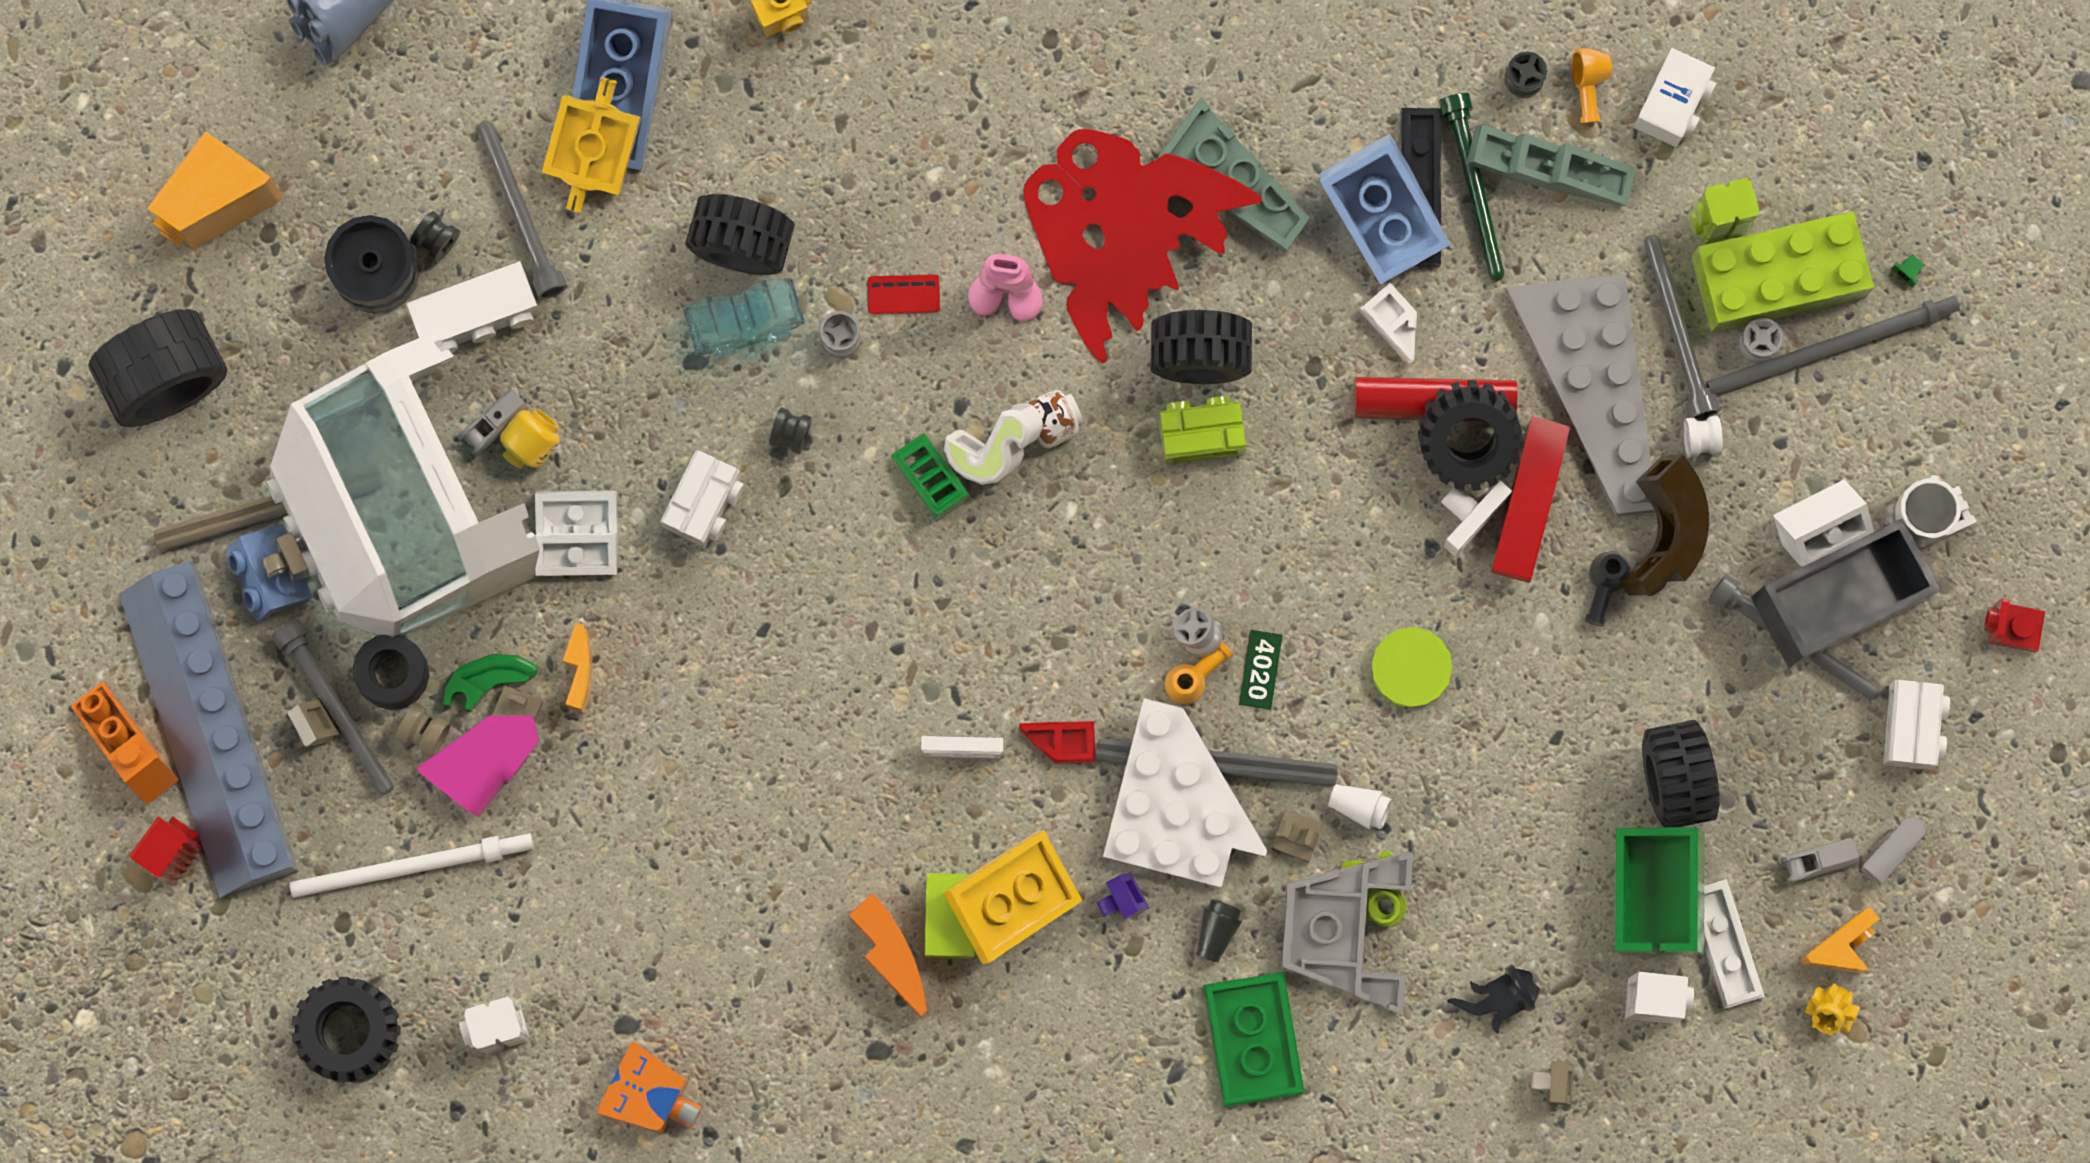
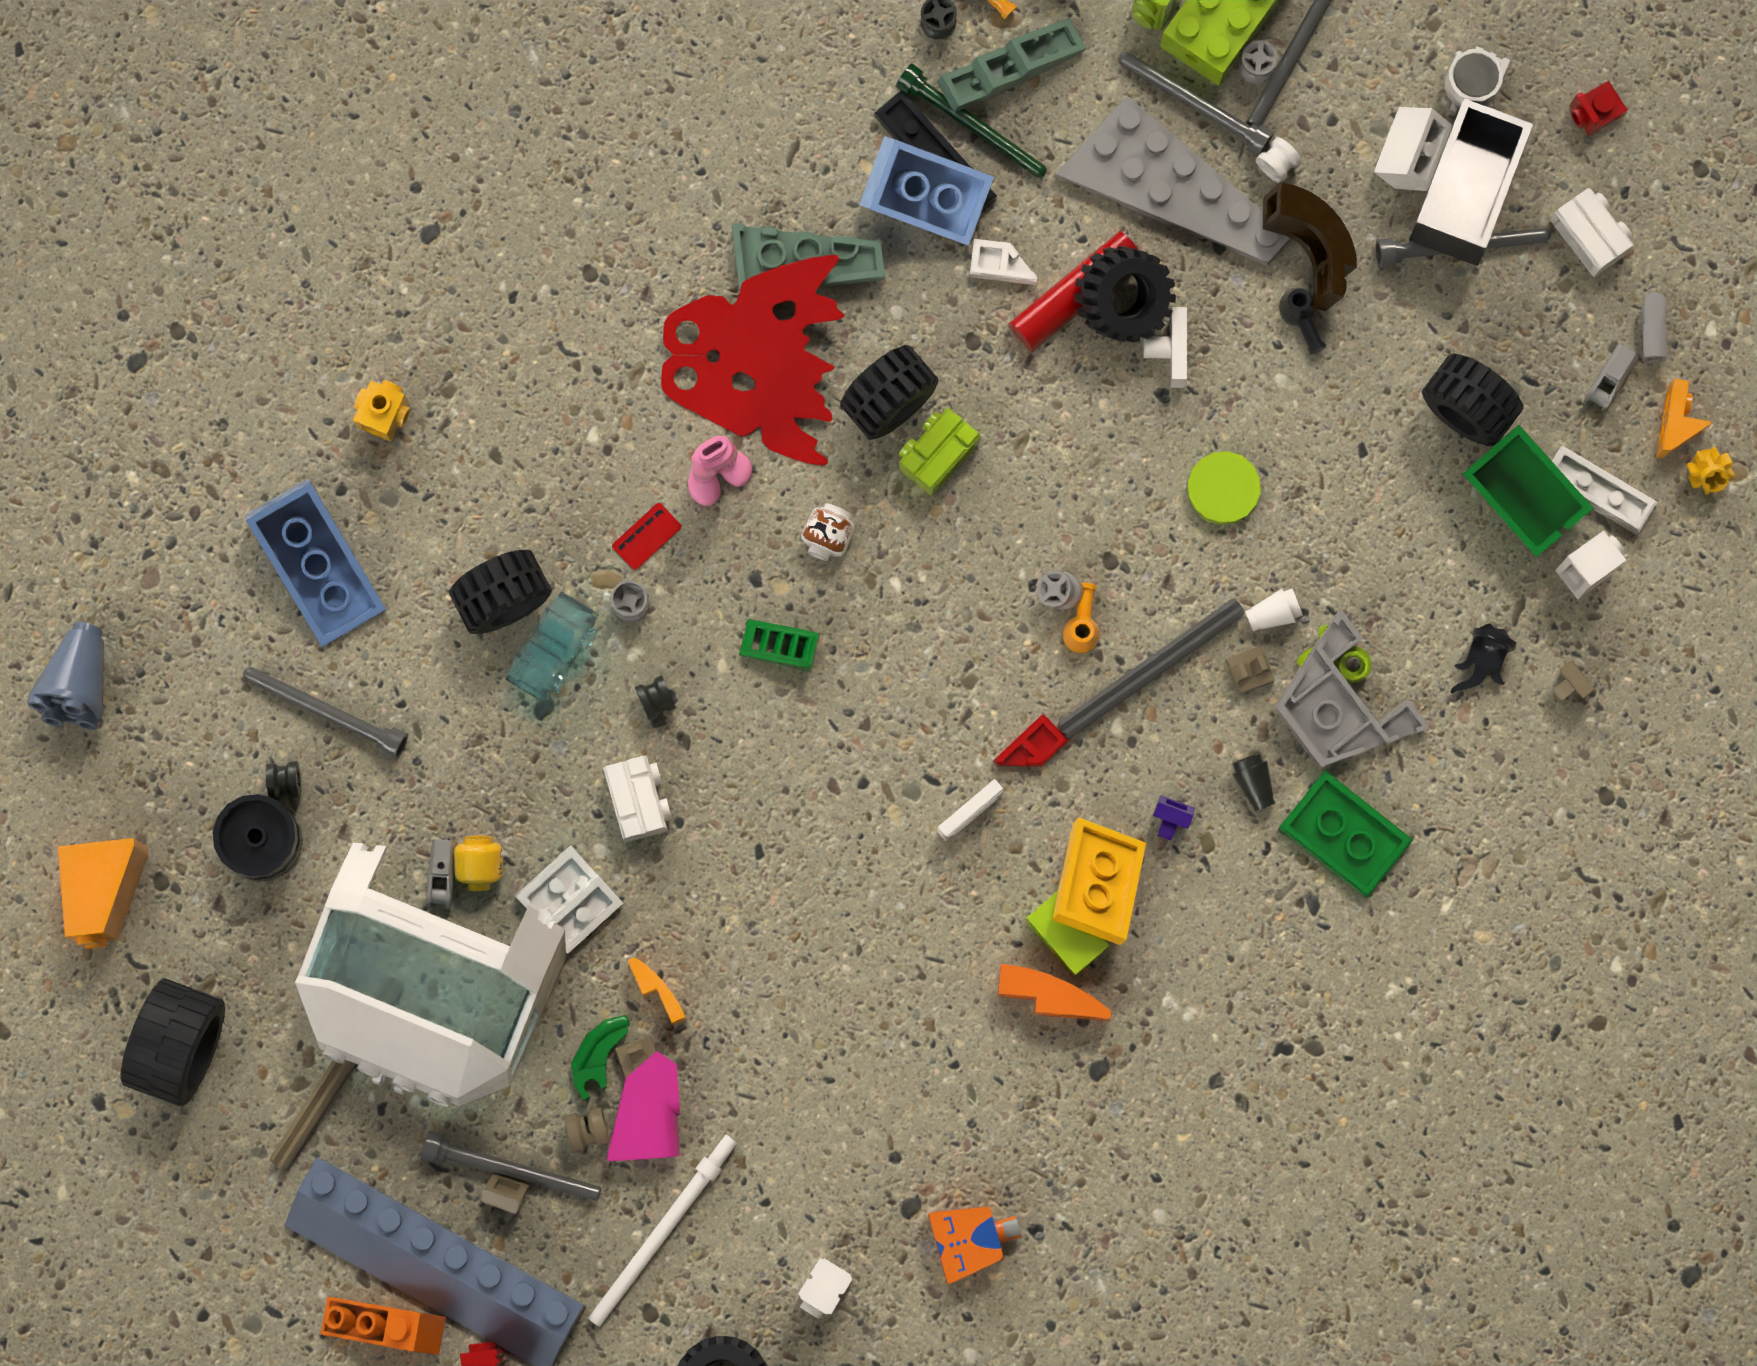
camera: 40 degrees left, 0 degrees up
(259, 592) = (377, 1117): medium blue bracket -> none
(286, 559) = (386, 1094): dark tan tile -> none
(390, 697) = (546, 1123): black tyre -> none
(476, 307) = (358, 804): white brick -> none
(591, 144) = (337, 621): yellow plate -> none
(1003, 449) = (818, 586): white animal -> none
(1176, 804) = (1150, 719): white wing -> none
(1260, 669) = (1123, 579): dark green sticker -> none
(1530, 499) = (1205, 306): red slope -> none

